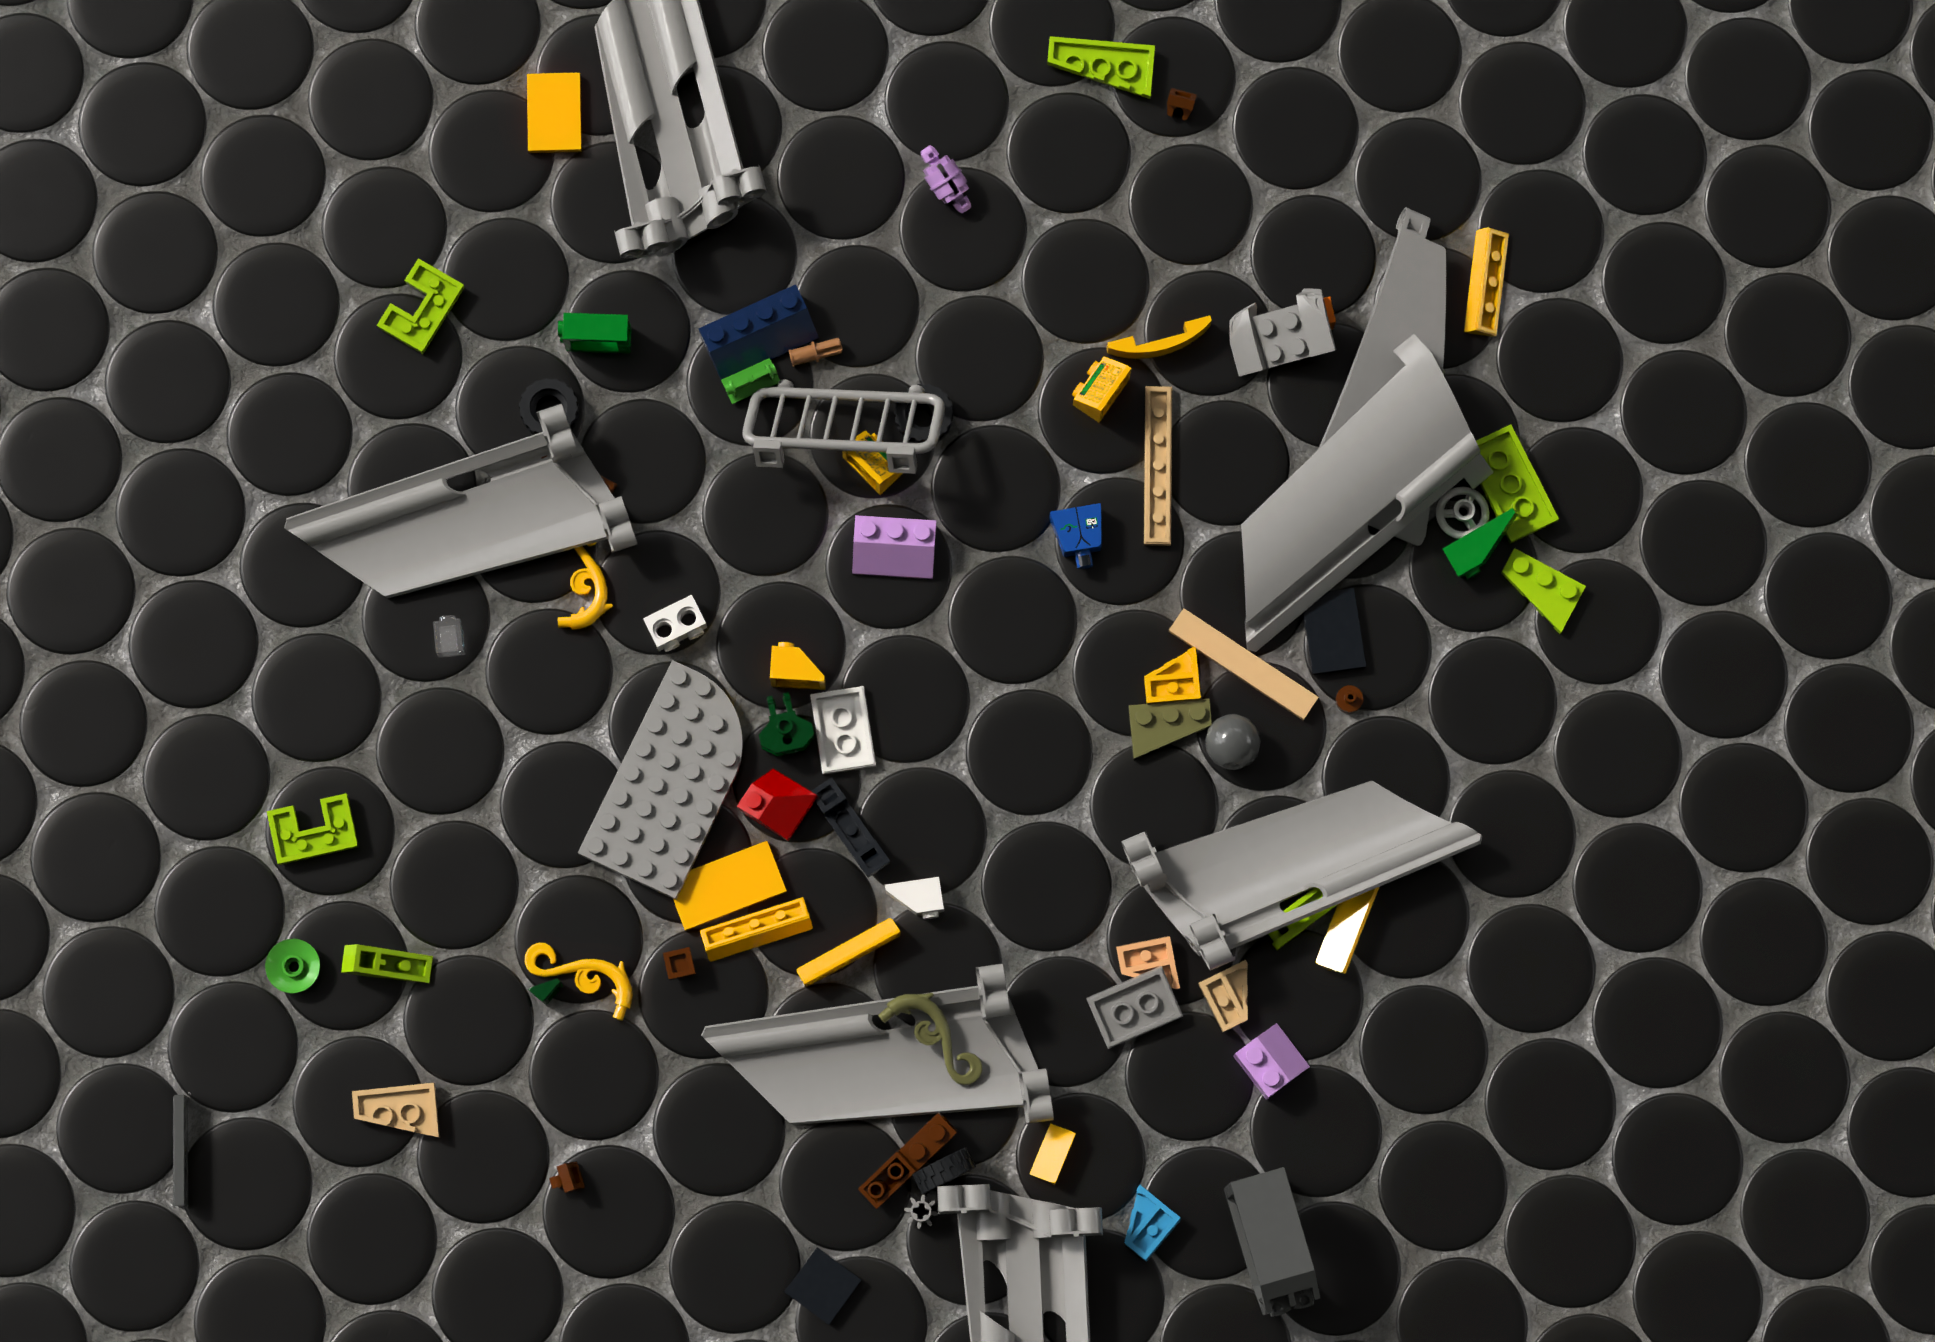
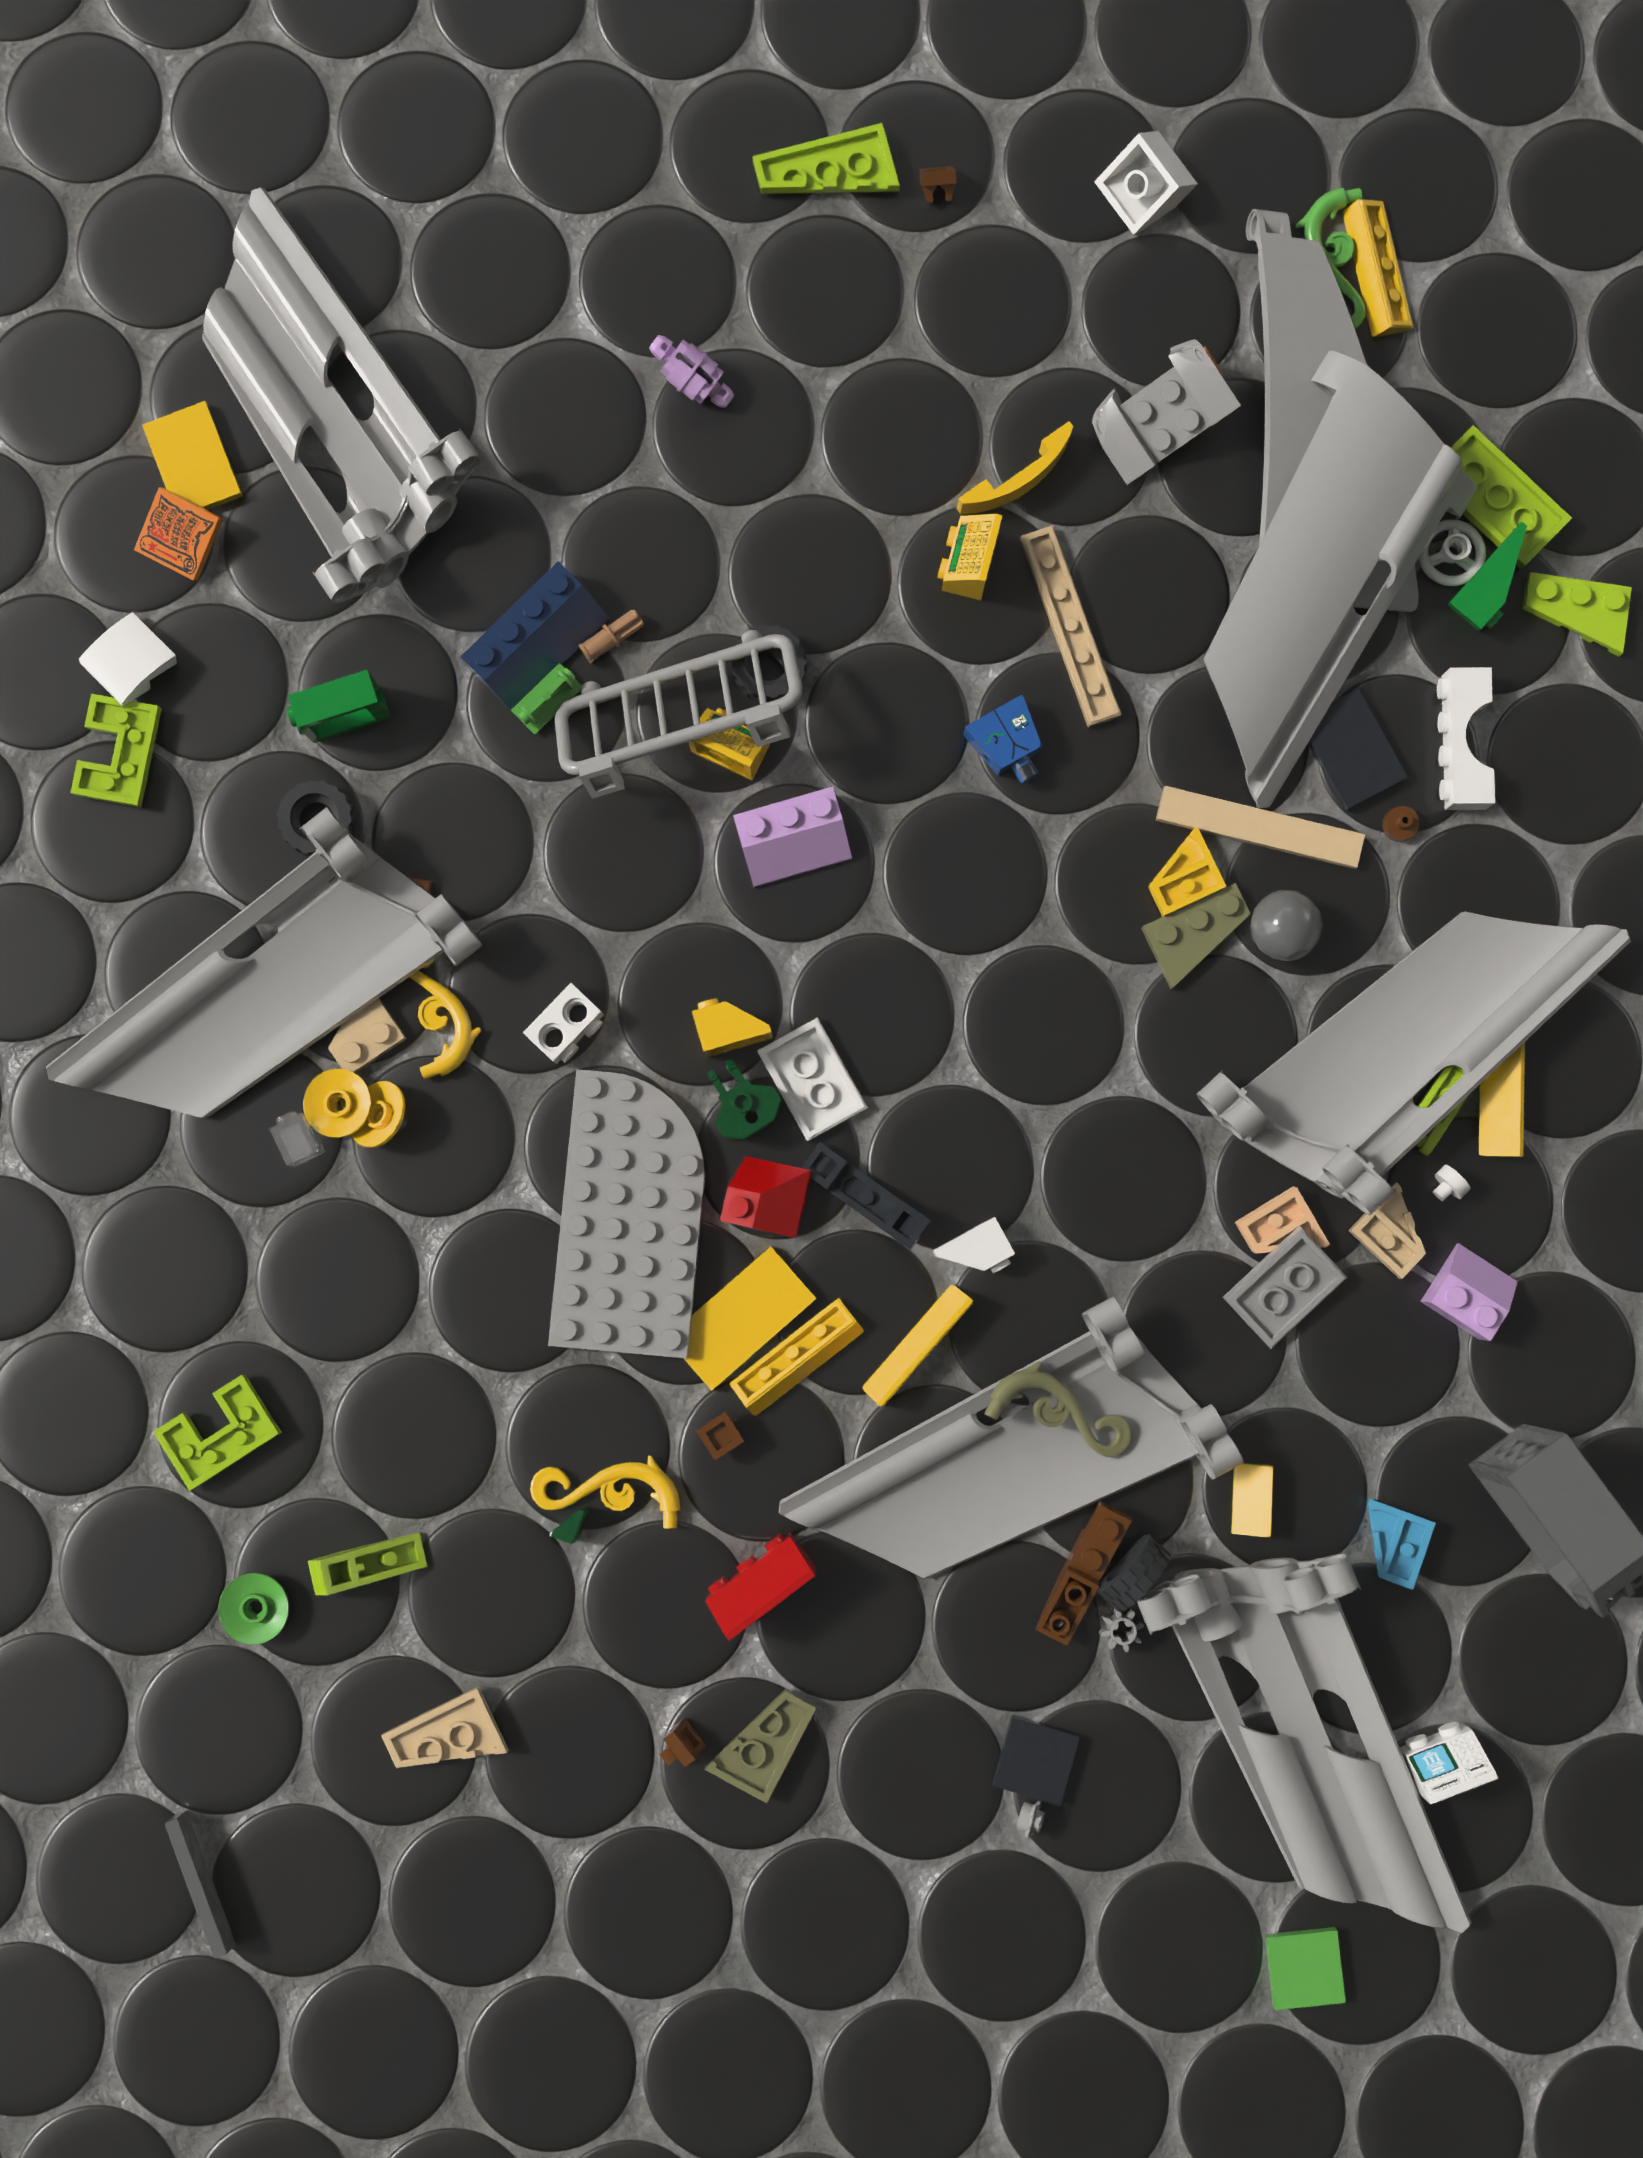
camera: 15 degrees left, 5 degrees up
(453, 242) = (127, 659): none -> white slope
(485, 609) = (322, 1099): none -> yellow dish
(514, 640) = (384, 1117): none -> yellow dish
(524, 163) = (178, 533): none -> orange tile
(525, 581) = (365, 1037): none -> tan wing
(627, 1203) = (764, 1746): none -> olive wing
(668, 1081) = (759, 1584): none -> red slope
(803, 1325) = (1030, 1818): none -> light grey plate
(1286, 975) = (1450, 1183): none -> white tile
(1335, 157) = (1145, 181): none -> white slope
(1409, 686) = (1466, 780): none -> white arch
(1449, 232) = (1340, 241): none -> bright green plant

